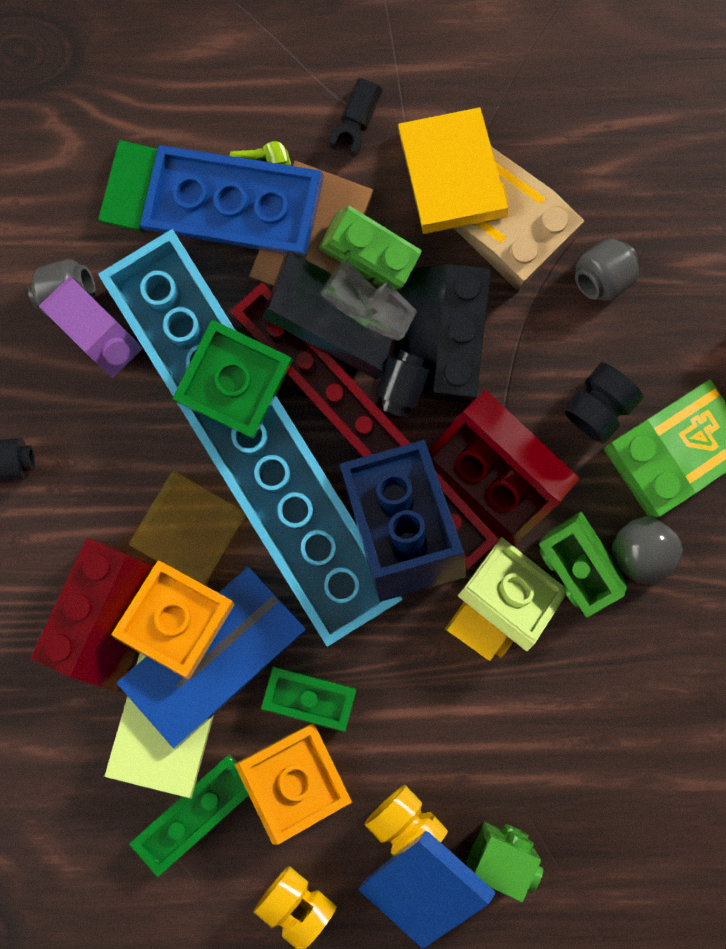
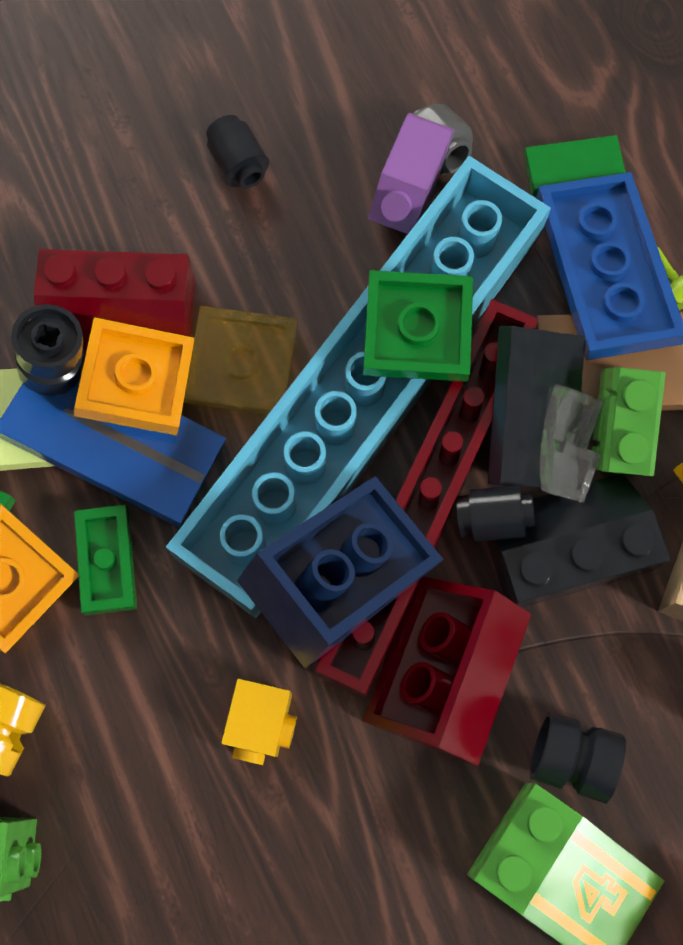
camera: 65 degrees right, 10 degrees down
(129, 680) = (48, 349): none -> black wheel
(513, 594) = (310, 741): yellowish green tile -> none
(583, 565) = (377, 812): bright green brick -> none
(647, 550) = (427, 885): dark grey hair -> none

